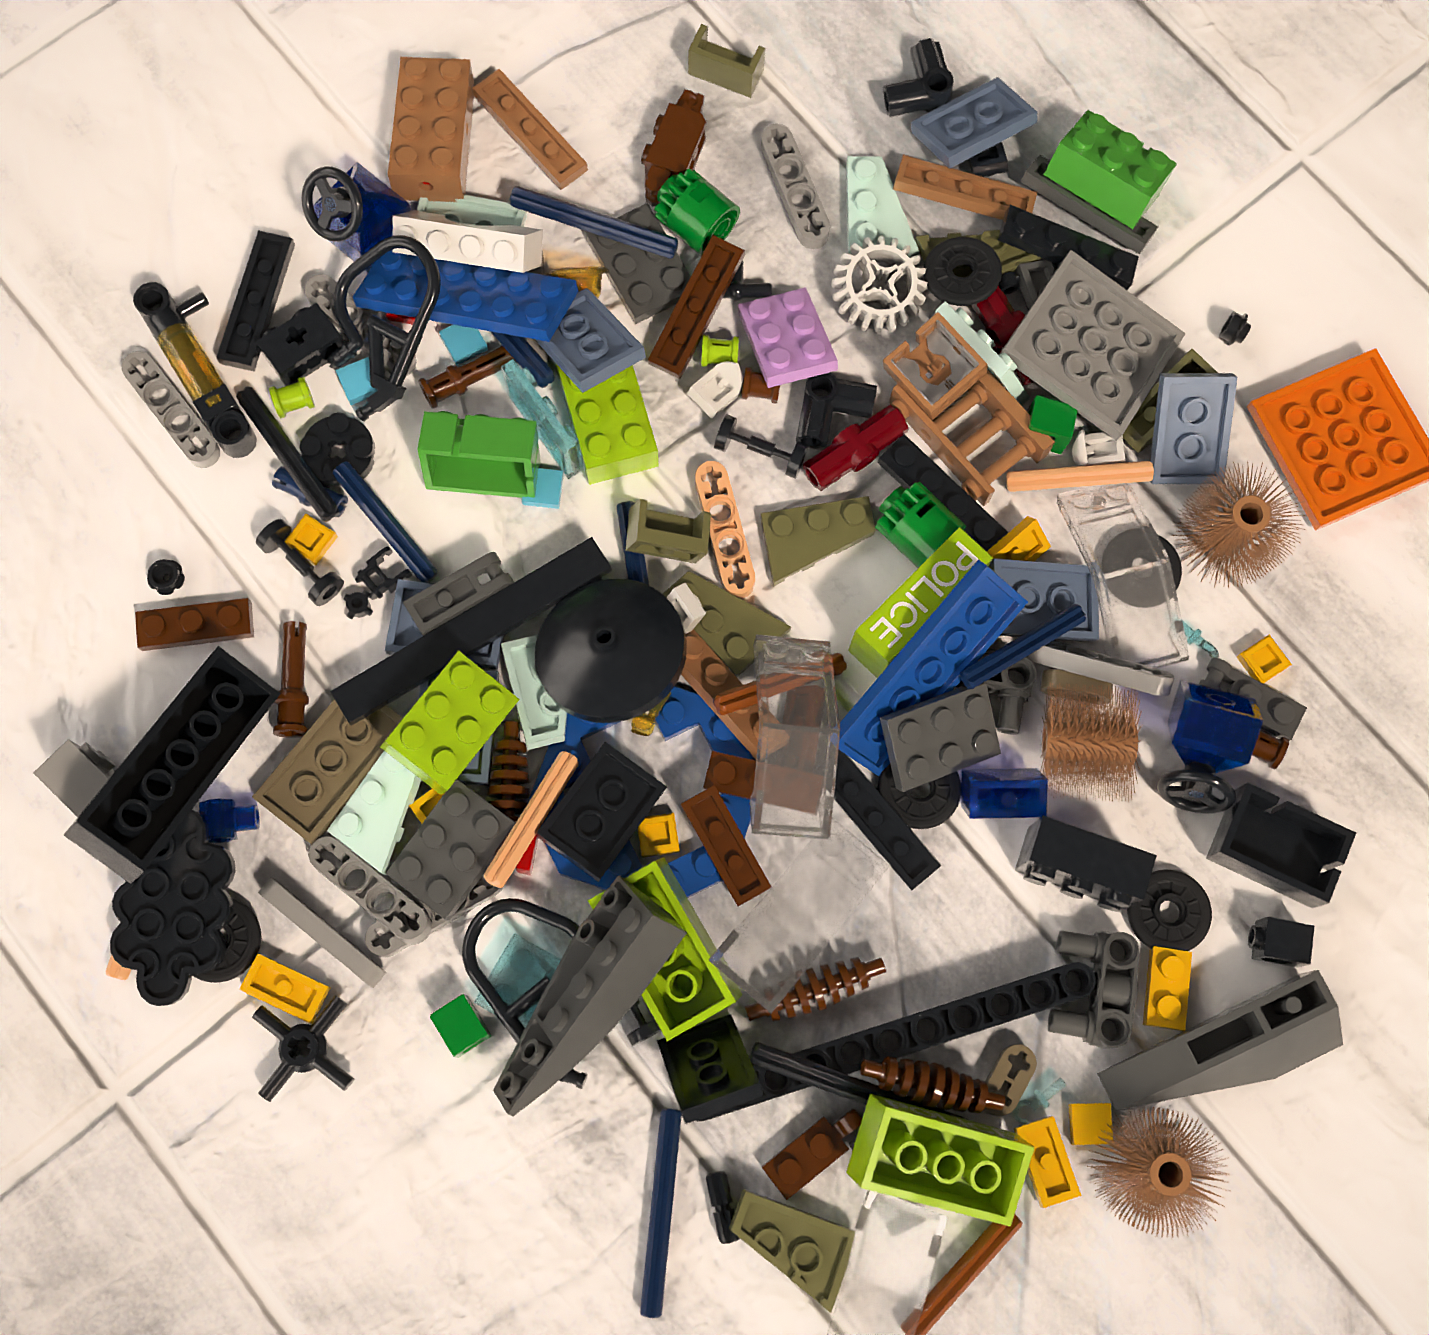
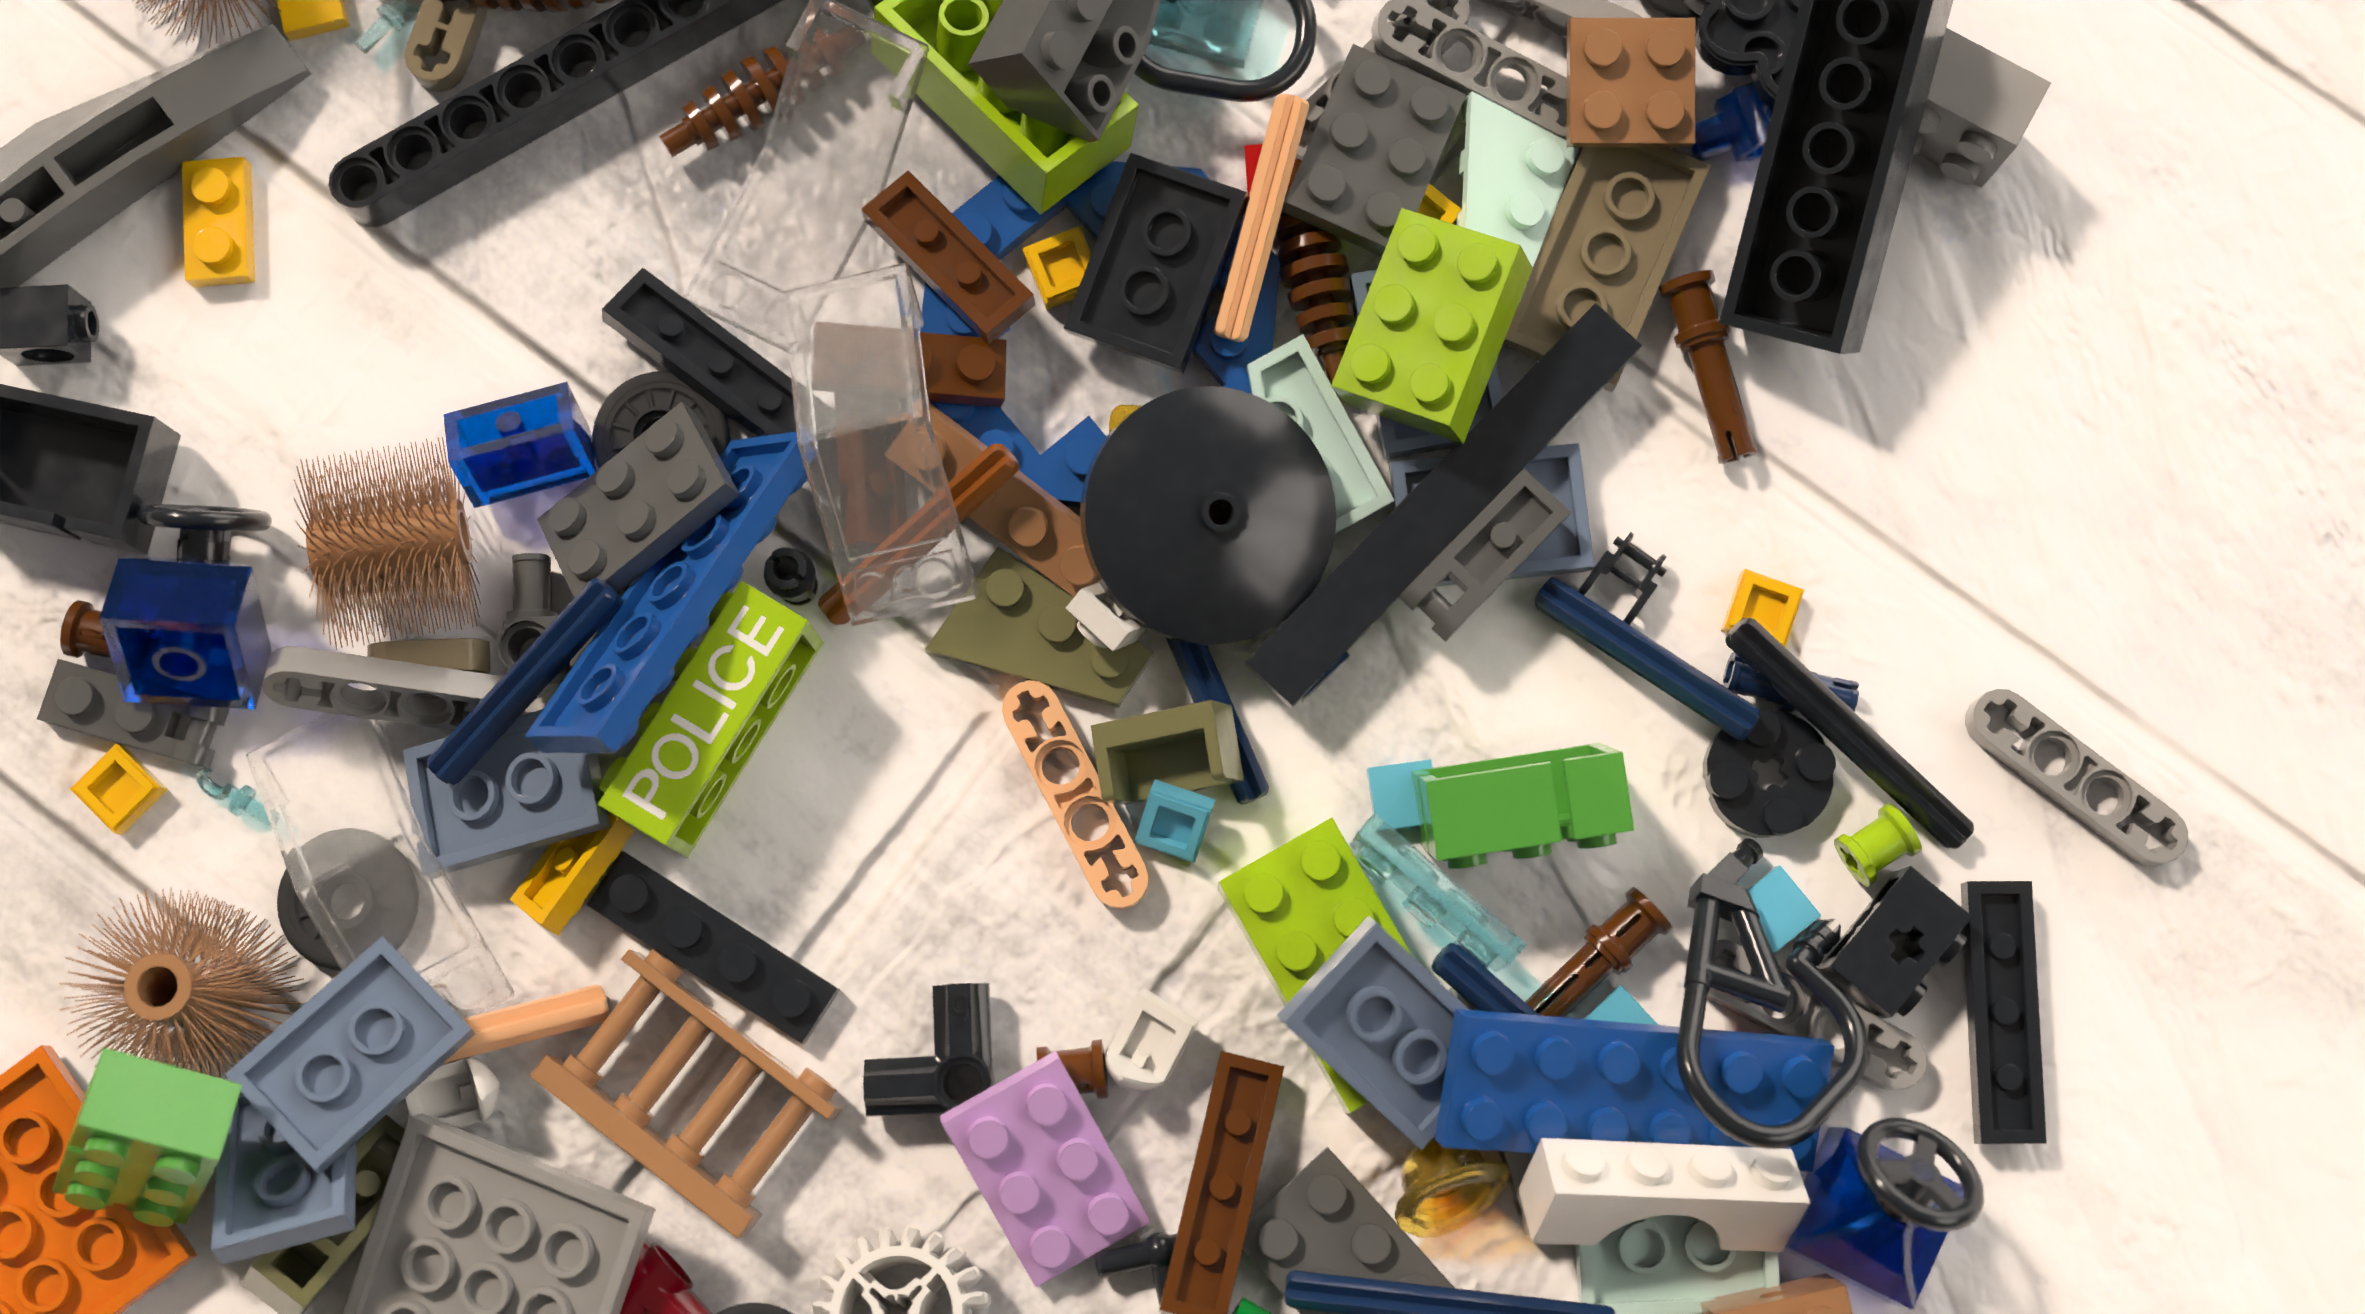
camera: 170 degrees right, 5 degrees up
(165, 567) = (1991, 483): black plate -> none
(194, 366) = (2002, 797): black piece -> none
(194, 624) = (1900, 422): reddish brown plate -> none
(274, 536) = (1767, 559): black wheel -> none
(283, 853) = (1631, 82): none -> medium nougat plate
(358, 604) = (1648, 518): black piece -> none
(673, 500) = (1174, 821): none -> medium azure tile
(719, 350) = (1160, 1118): lime bush -> none
(760, 446) = (1044, 954): black wheel -> none
(811, 533) = (921, 826): olive wing -> none
(855, 447) = (880, 995): dark red piece -> none
(859, 678) = (791, 562): none -> black pin
(916, 522) = (741, 867): green gear -> none
(937, 346) = (741, 1134): medium nougat piece -> none
(999, 365) = (692, 1228): light aqua wing -> none
(1054, 420) = (541, 1119): green panel -> none
(1085, 864) = (368, 355): black piece -> none
(1113, 992) = (299, 195): dark grey piece -> none
(1150, 466) = (350, 1054): none -> sand blue plate
(1193, 907) = (252, 368): black wheel -> none
(1267, 441) = (146, 1138): none -> bright green piece

